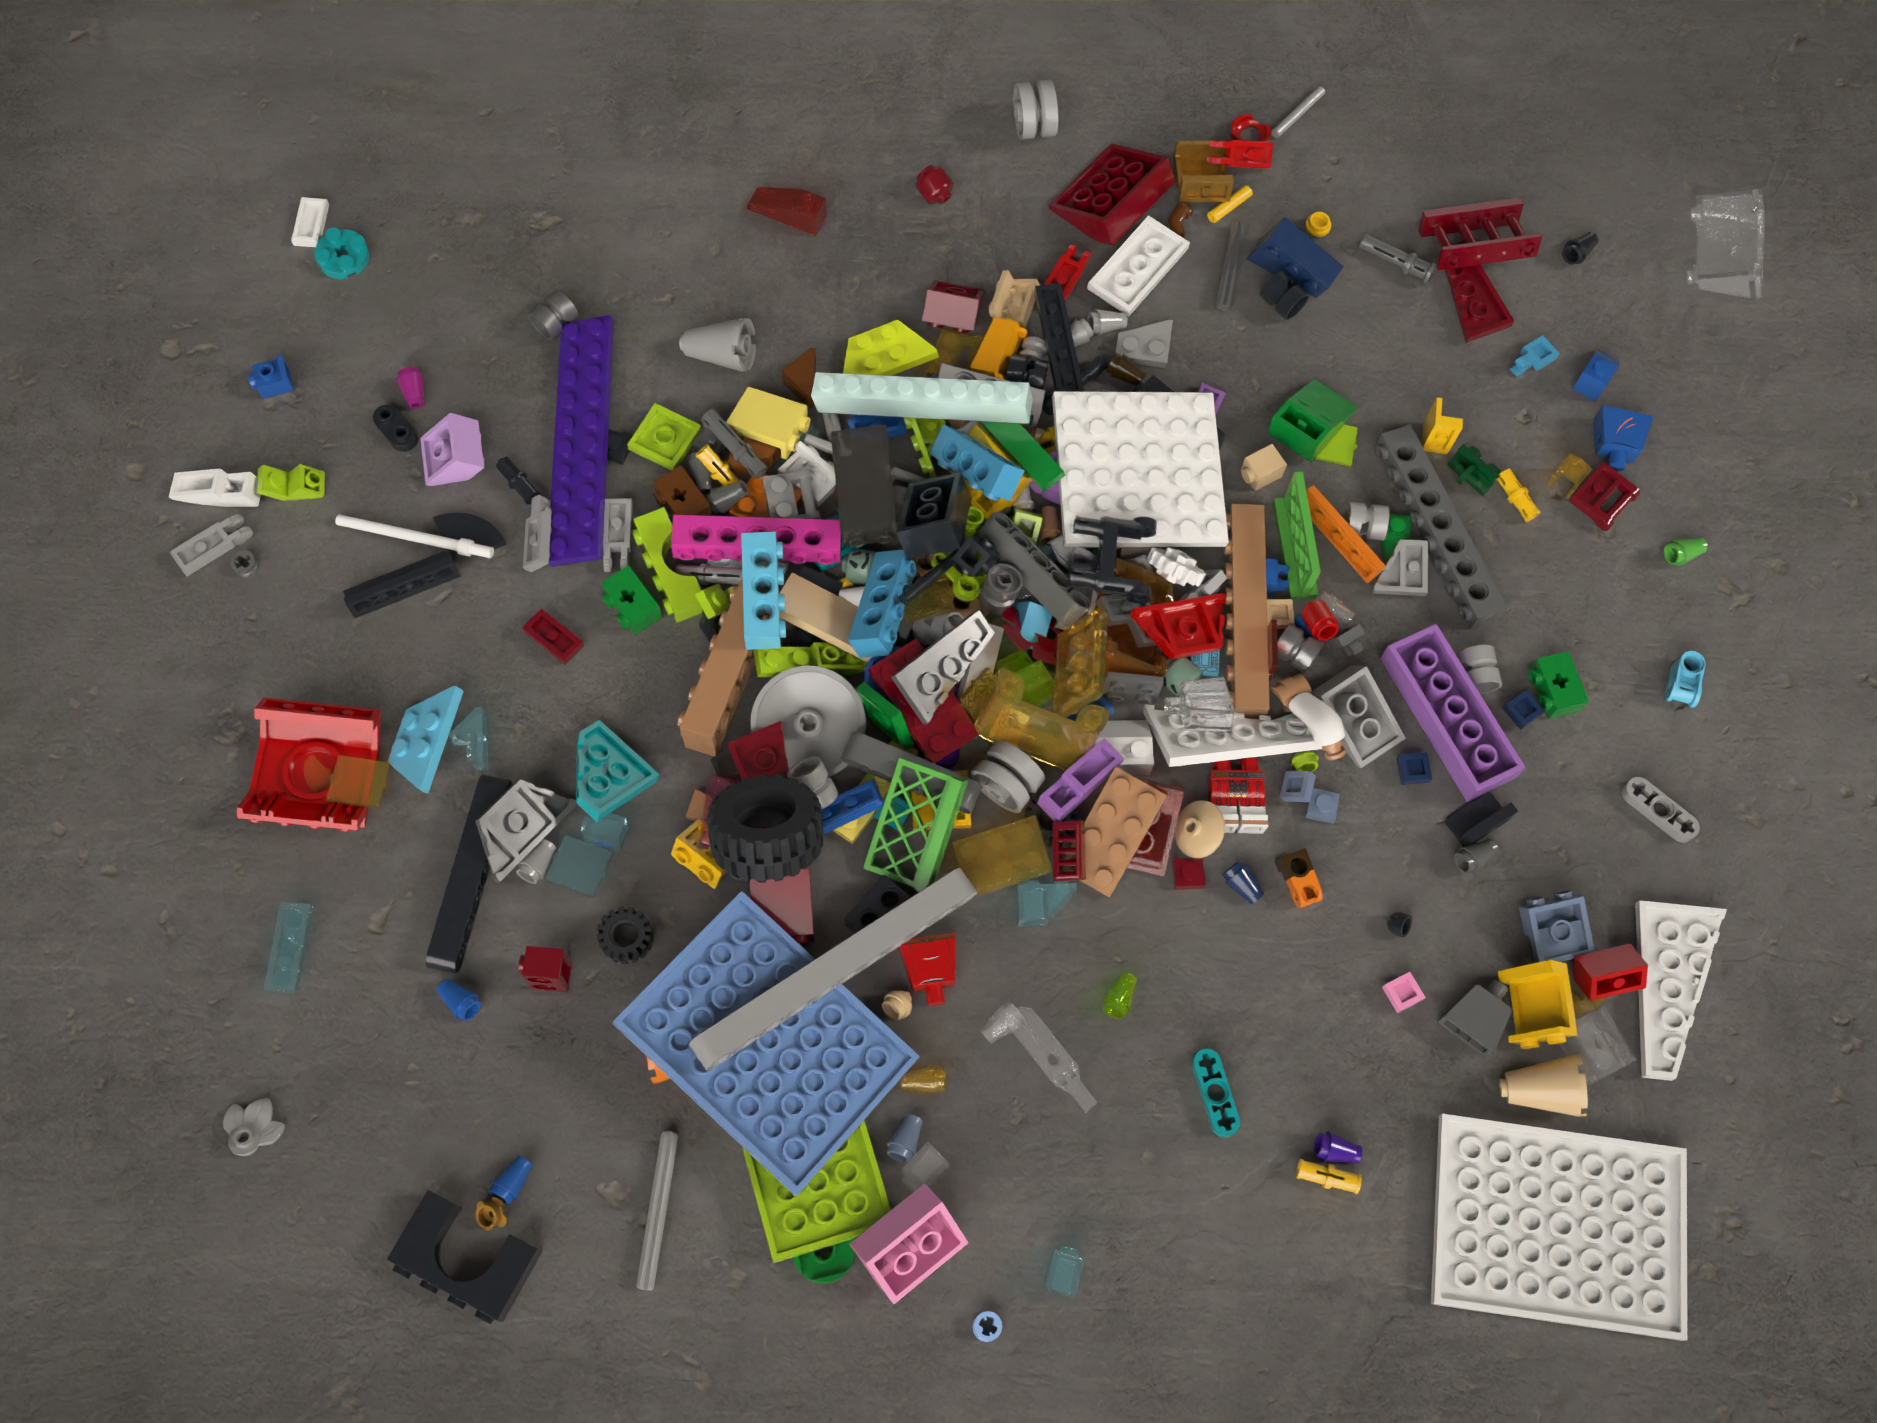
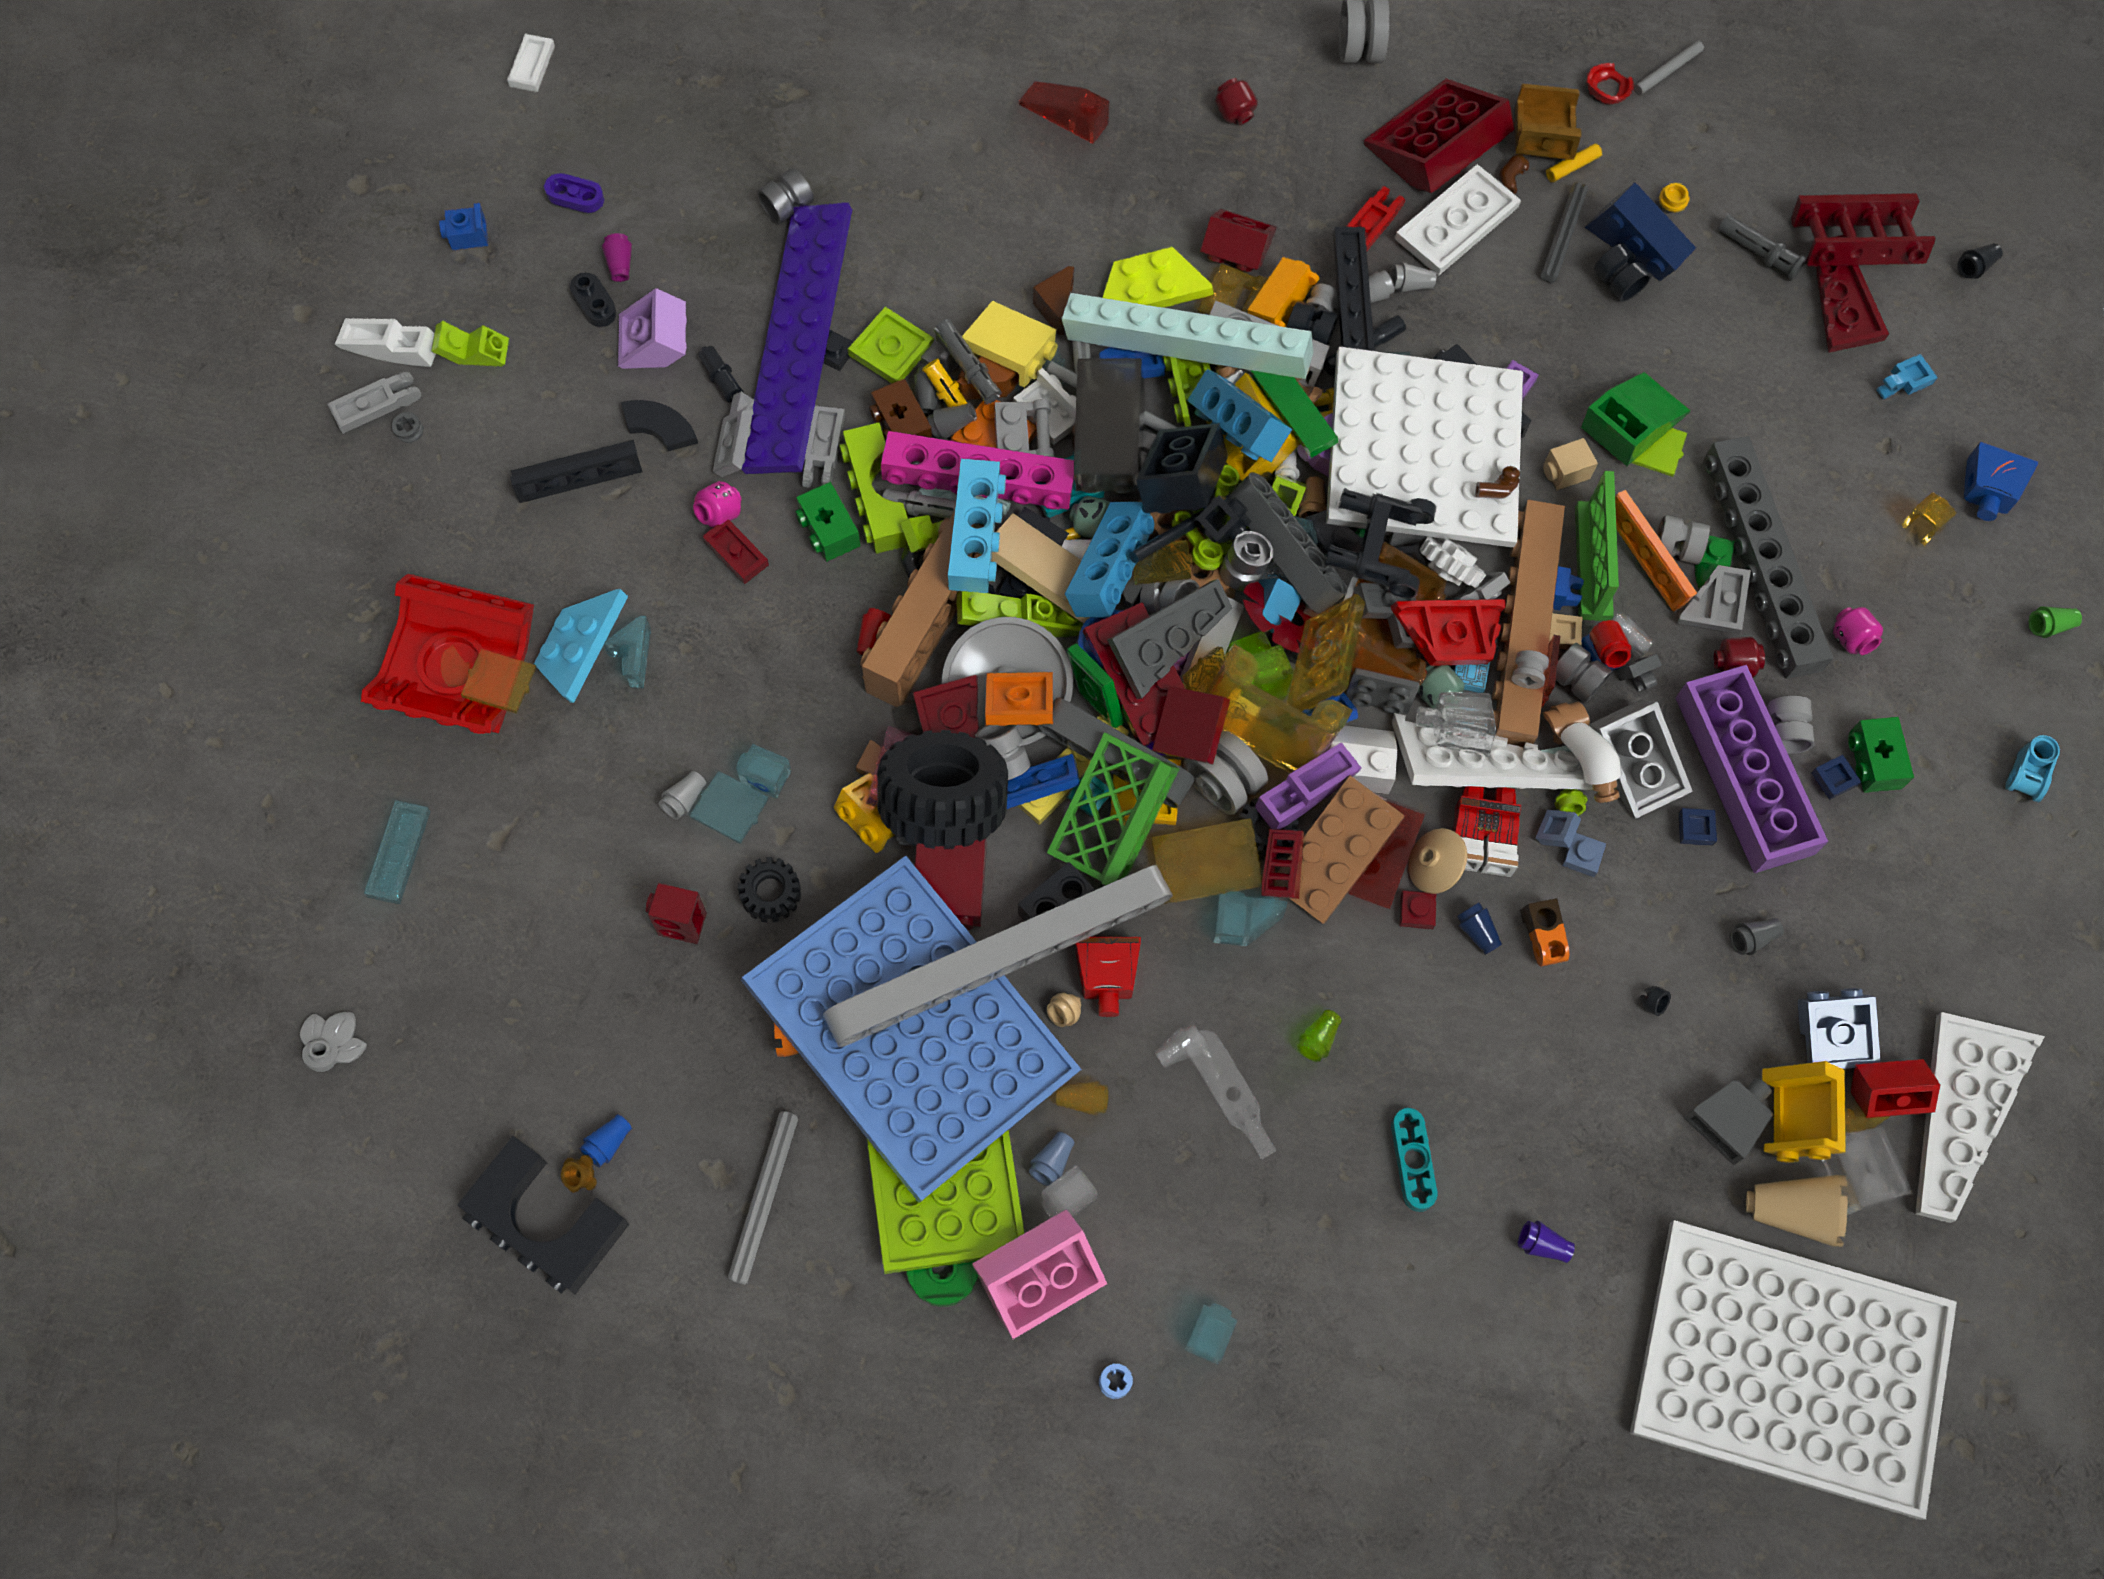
camera: 10 degrees right, 0 degrees up
(341, 240) = (556, 87): teal plate -> none
(366, 336) = (576, 192): none -> dark purple plate
(459, 1000) = (576, 935): blue cone -> none
(463, 546) = (649, 438): white bar -> none
(464, 884) = (606, 798): black beam -> none
(519, 824) = (668, 750): wing -> none
(531, 597) = (717, 504): none -> dark pink head
(608, 771) = (776, 706): teal plate -> none
(681, 690) = (869, 628): none -> red cone
(722, 344) = (970, 250): light grey cone -> none
(821, 737) = (1019, 698): none -> orange plate
(973, 741) = (1191, 725): none -> dark red tile
(1013, 298) = (1308, 239): tan bracket -> none
(1124, 369) = (1425, 335): dark brown cone -> none
(1146, 344) = (1453, 310): light grey wing -> none
(1209, 496) = (1502, 487): none -> reddish brown arm
(1243, 153) = (1597, 106): red hinge -> none
(1255, 652) = (1530, 669): none -> light grey wheel
(1328, 1176) = (1531, 1272): yellow pin -> none
(1403, 992) = (1648, 1077): bright pink plate -> none
(1427, 614) = (1740, 652): none -> dark red head
(1439, 431) = (1782, 447): yellow panel -> none
(1473, 469) = (1816, 498): dark green hips -> none
(1479, 819) = (1766, 894): black panel -> none
(1518, 495) = (1864, 533): yellow pin -> none
(1524, 580) = (1858, 630): none -> dark pink head
(1596, 375) = (1977, 407): blue slope -> none
(1597, 491) = (1960, 539): dark red plate -> none
(1672, 807) = (1997, 913): light grey beam -> none

